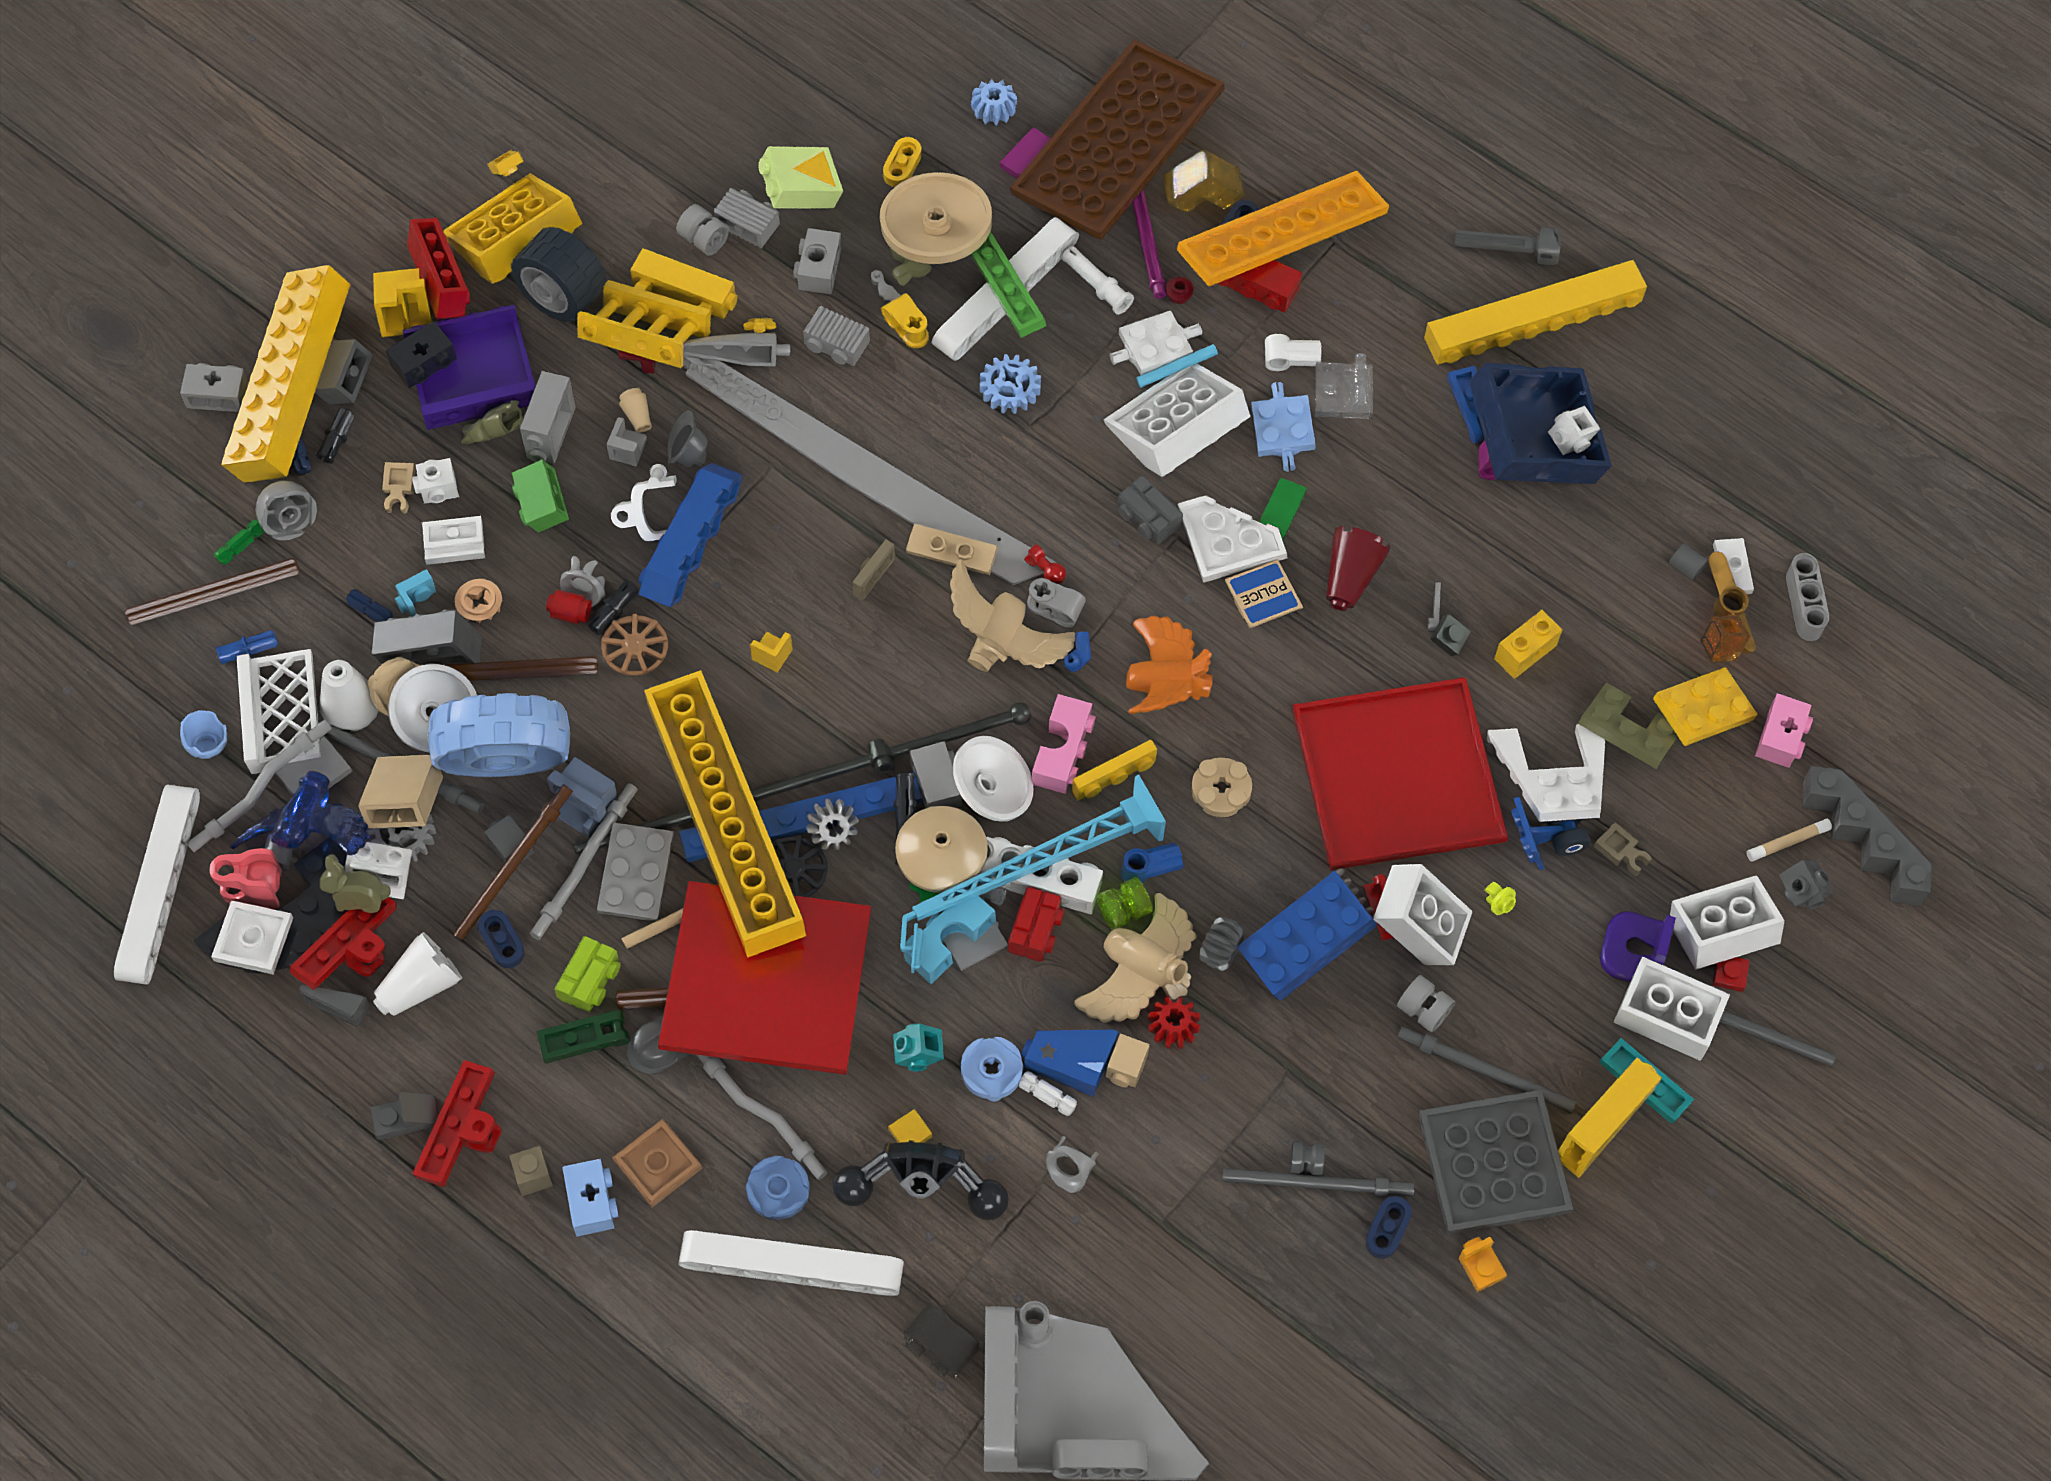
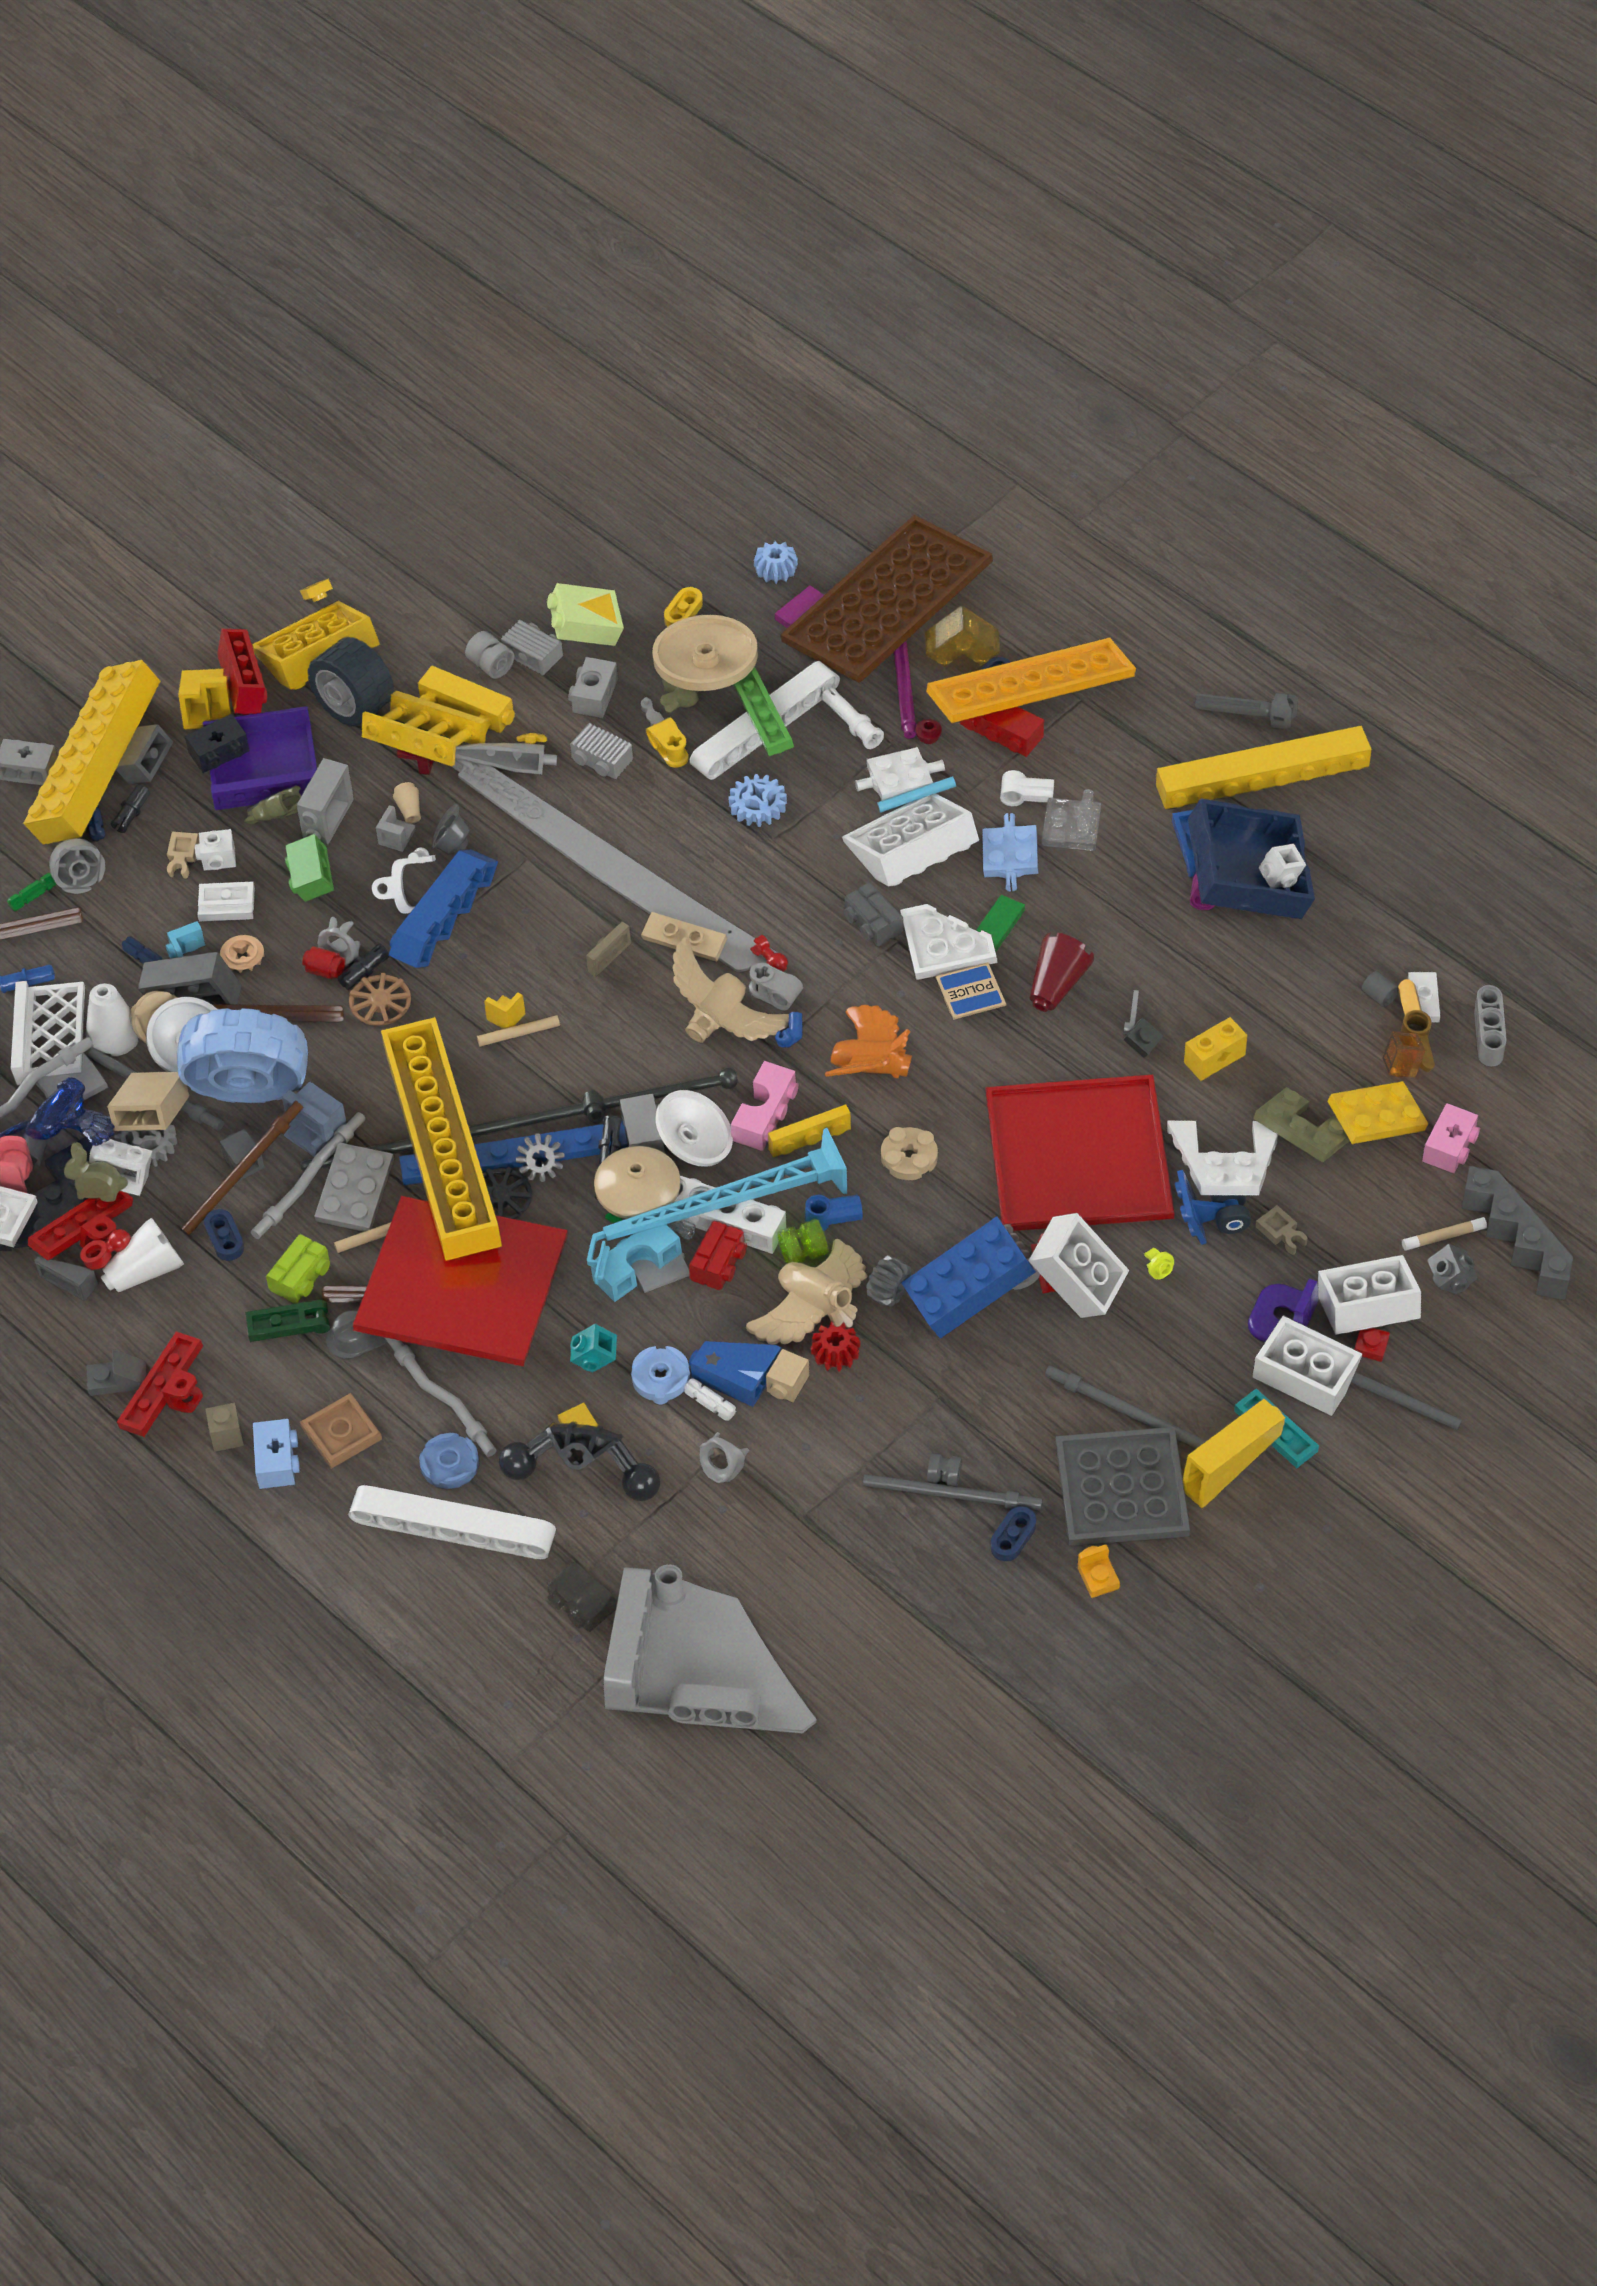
camera: 10 degrees right, 10 degrees down
(388, 963) = (98, 1253): none -> red plate
(788, 671) = (518, 1030): none -> tan bar
(1418, 995) = (1075, 1346): light grey wheel -> none

